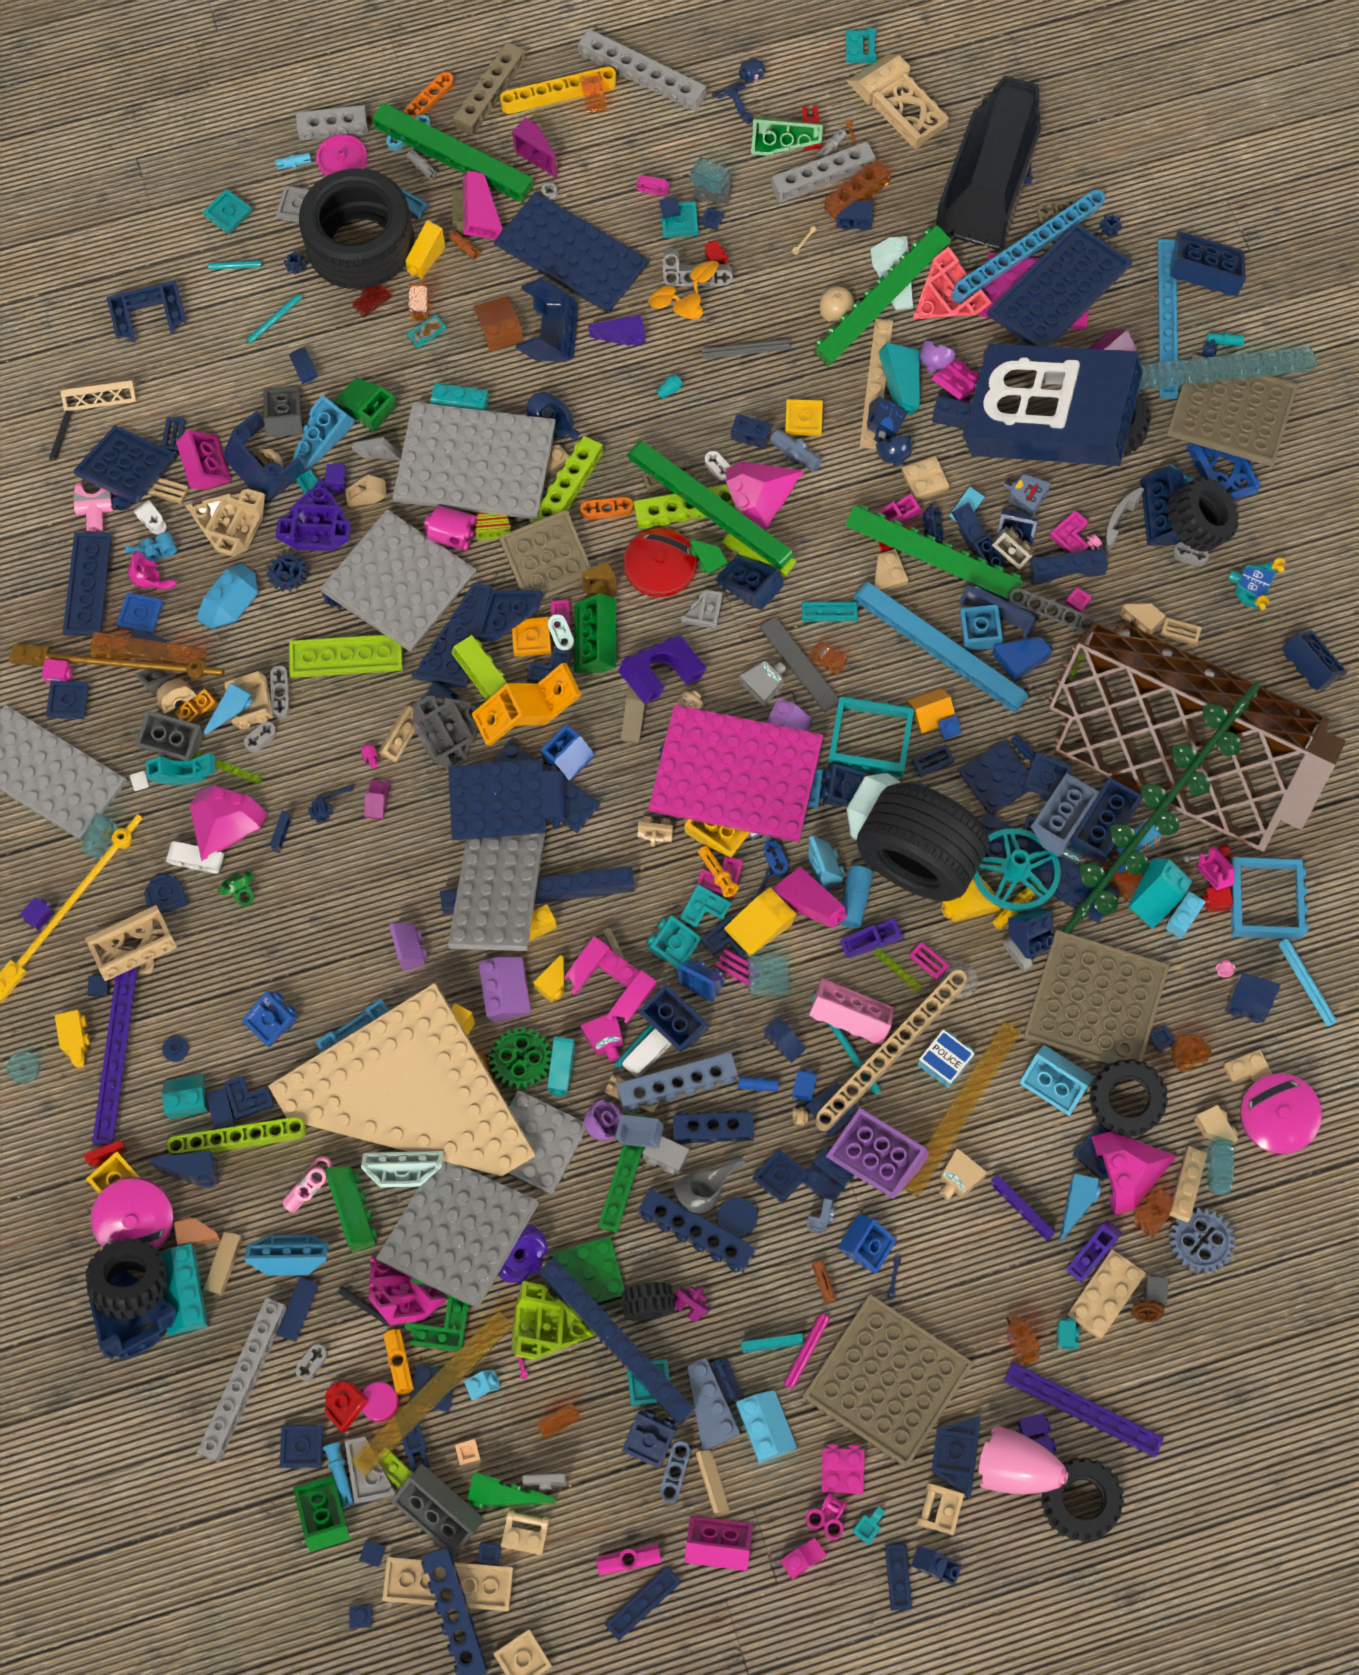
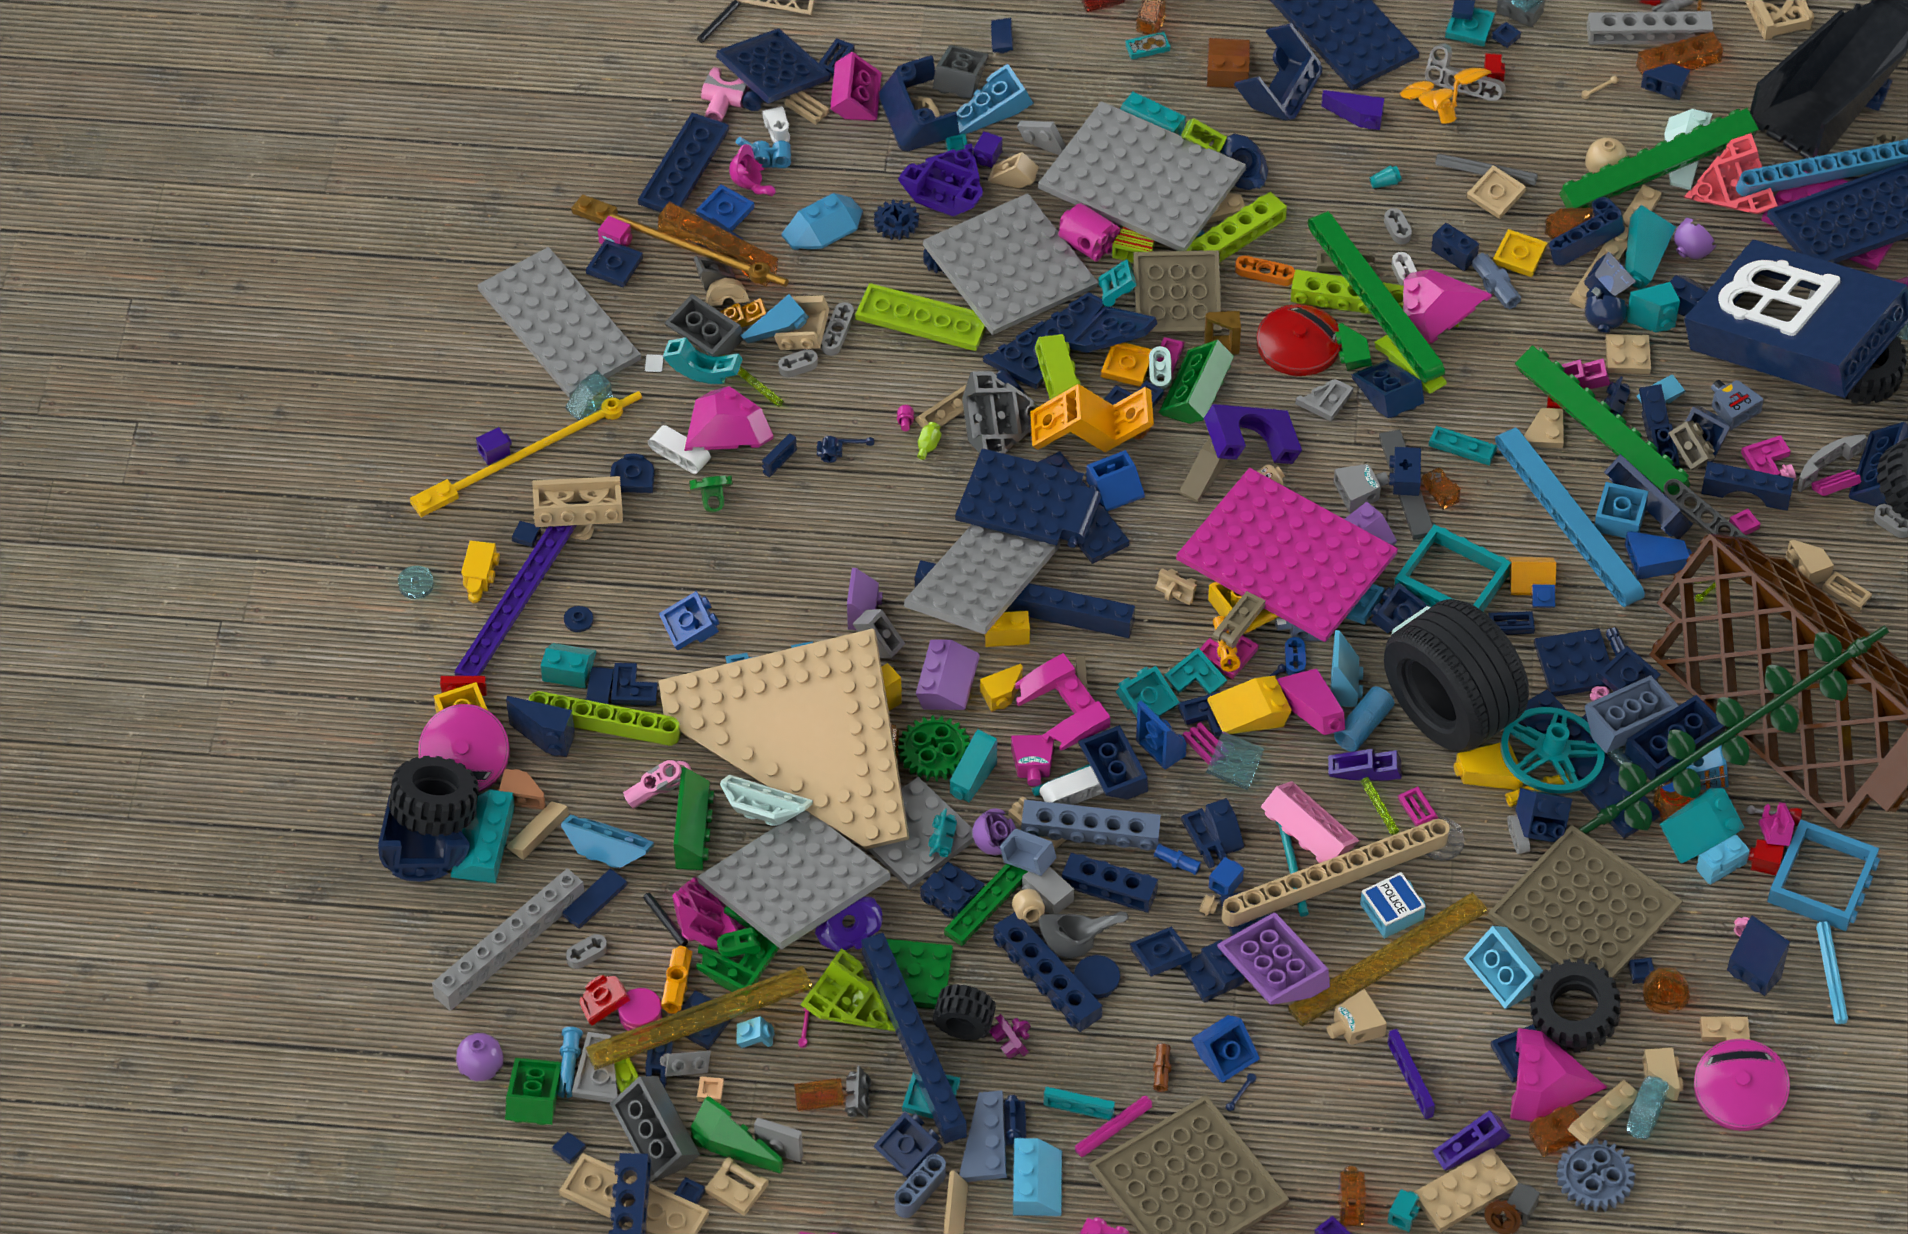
camera: 20 degrees right, 15 degrees down
(230, 520) = (859, 152): tan wedge -> none
(263, 1499) = (479, 1057): none -> medium lavender cylinder
(301, 1446) = (541, 1023): dark blue plate -> none
(360, 1616) = (529, 1200): dark blue plate -> none
(366, 402) = (1053, 91): green slope -> none
(376, 799) = (893, 460): magenta slope -> none
(398, 769) = (928, 439): none -> lime plant
(430, 1313) = (730, 945): none -> green plate
(433, 971) = (887, 637): none -> light grey brick
(443, 1433) = (686, 1063): none -> light grey hinge
(498, 564) = (1122, 279): none -> teal plate
(506, 405) = (1202, 135): none -> lime torso
(559, 1131) = (943, 826): none -> teal hinge
(587, 1397) = (859, 1084): none -> dark grey hinge
(588, 1185) = (950, 890): none -> dark blue plate
(659, 1179) = (1028, 905): none -> tan head
(693, 429) = (1393, 227): none -> light grey beam
(723, 849) = (1239, 619): none -> dark tan plate
(763, 368) = (1496, 192): none -> tan plate
(770, 1054) = (1203, 836): none -> dark blue hinge
(797, 646) = (1406, 471): none -> dark blue brick
(819, 1225) = (1186, 1005): sand blue bracket -> none
(830, 377) = (1565, 220): none -> clear orange slope
(839, 399) = (1589, 235): none -> dark blue beam
(933, 431) = (1654, 307): none -> teal slope
(957, 379) = (1704, 266): dark pink plate -> none
(1030, 805) = (1598, 690): none -> bright pink plate
(1081, 1195) = (1473, 1087): dark azure slope -> none
(1134, 536) = (1836, 482): none -> dark pink tile

